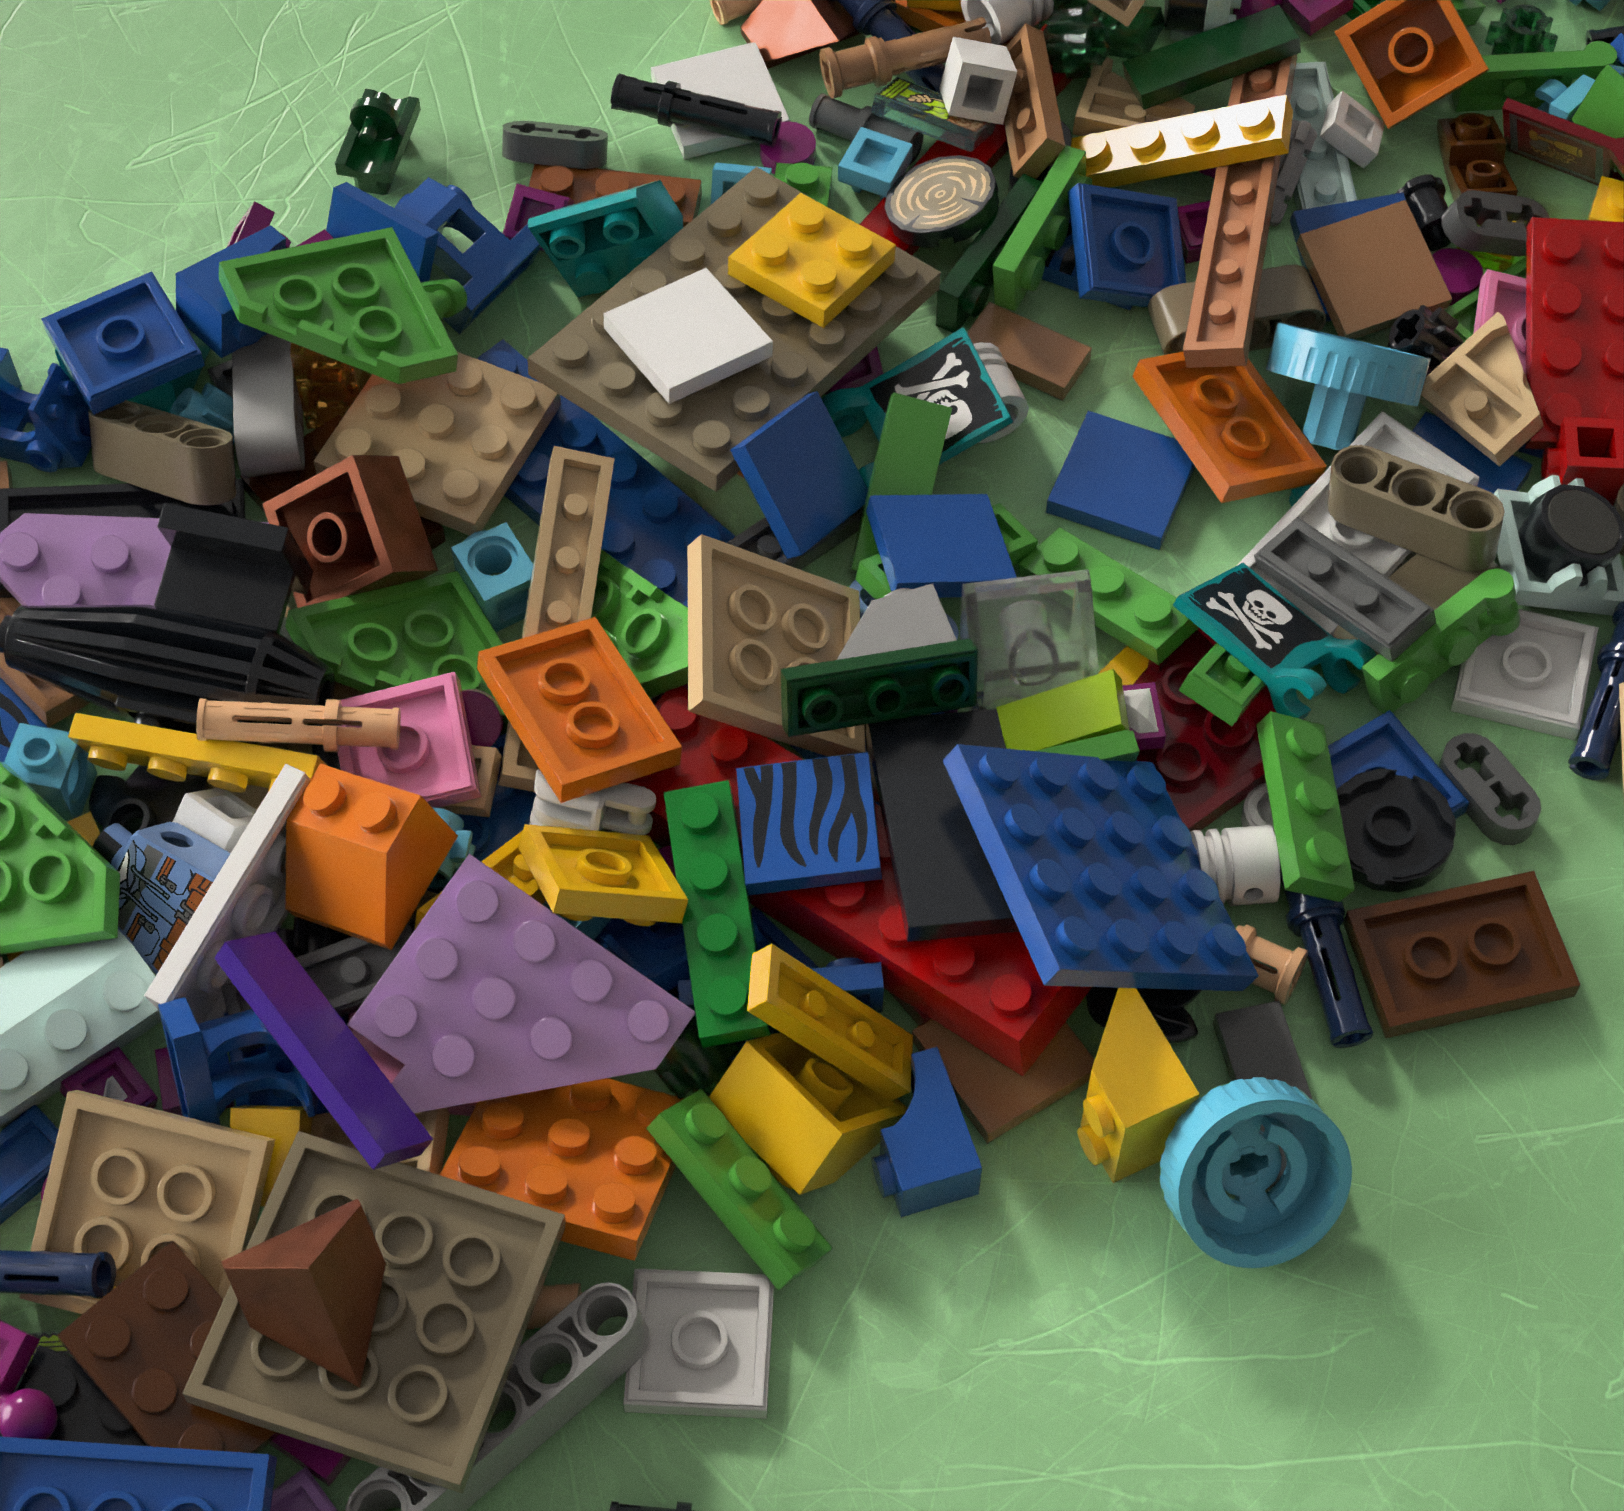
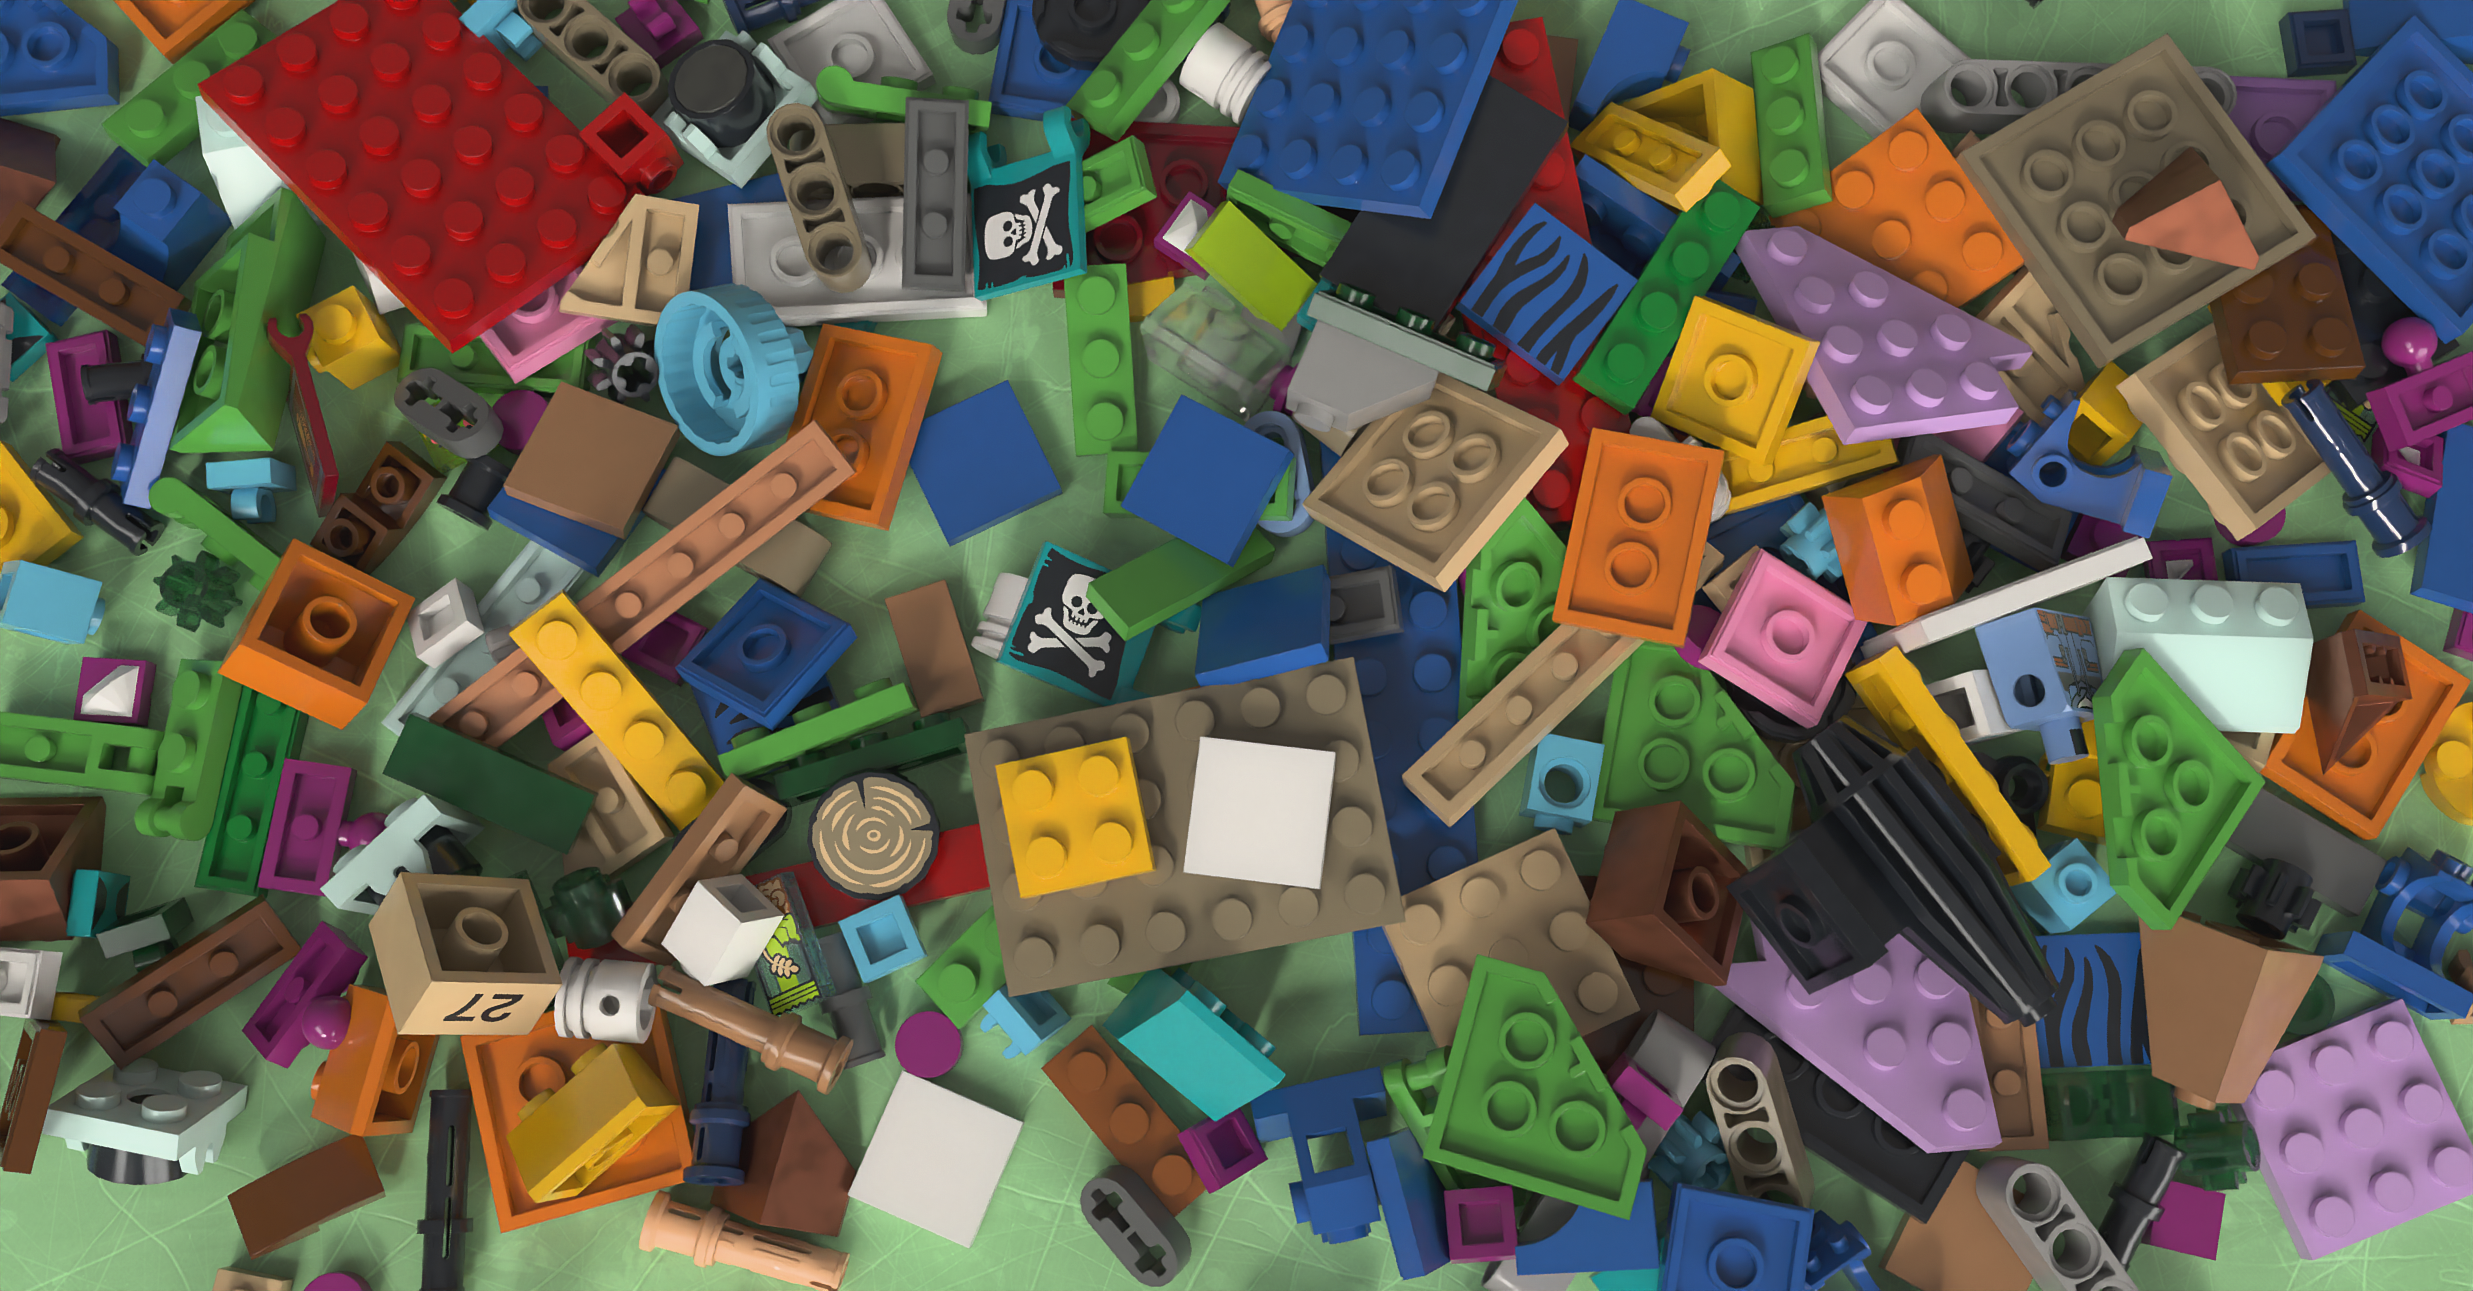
camera: 140 degrees left, 20 degrees up
(220, 722) = (1875, 700): light nougat pin -> none
(269, 374) = (1643, 1094): none -> magenta tile
(323, 1049) = (2056, 396): dark purple tile -> none
(709, 113) = (1029, 1208): black pin -> none

